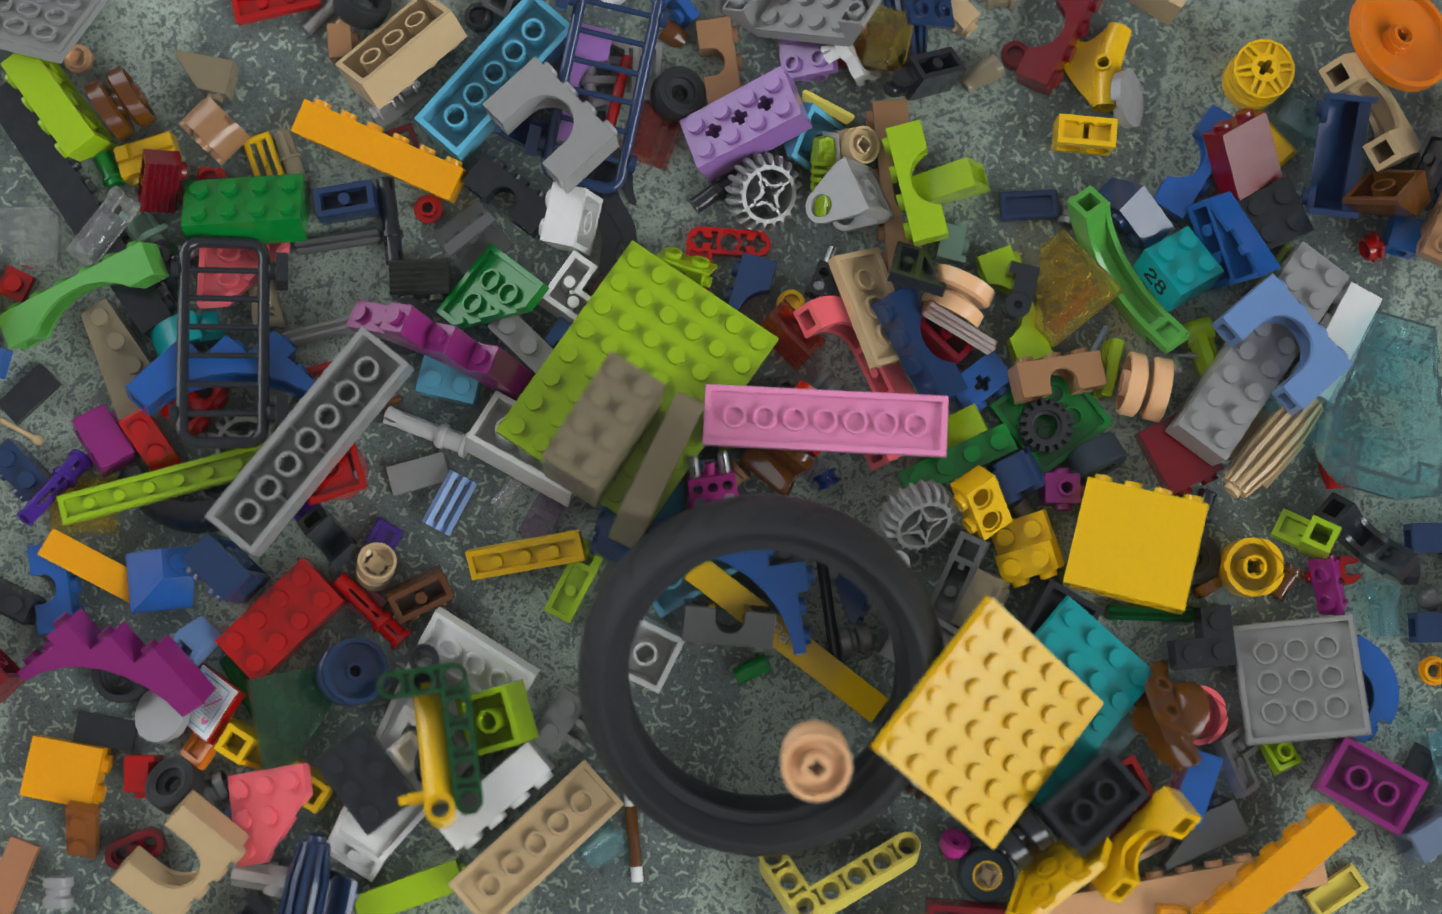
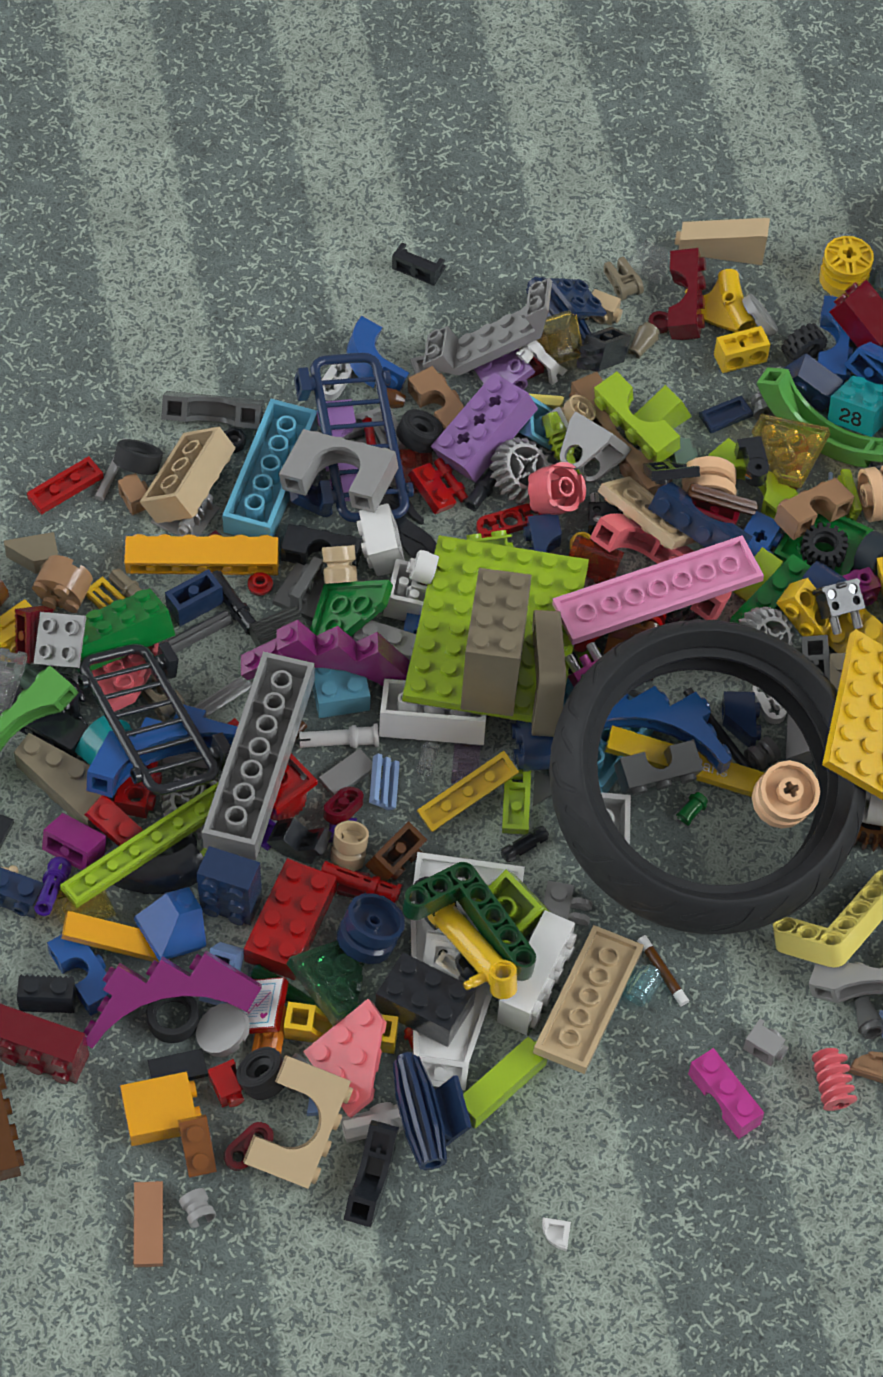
camera: 25 degrees left, 25 degrees down
(171, 207) = (59, 640): none -> light grey hinge
(391, 515) = (343, 805): none -> dark red plate
(510, 232) = (339, 564): none -> tan wheel
(558, 634) = (524, 843): none -> black axle
(592, 277) = (422, 567): none -> white plate
(661, 173) = (433, 489): none -> red plate
(785, 236) = (556, 489): none -> coral brick
(1018, 513) = (839, 600): none -> piece
(1157, 158) = (805, 340): none -> black tyre

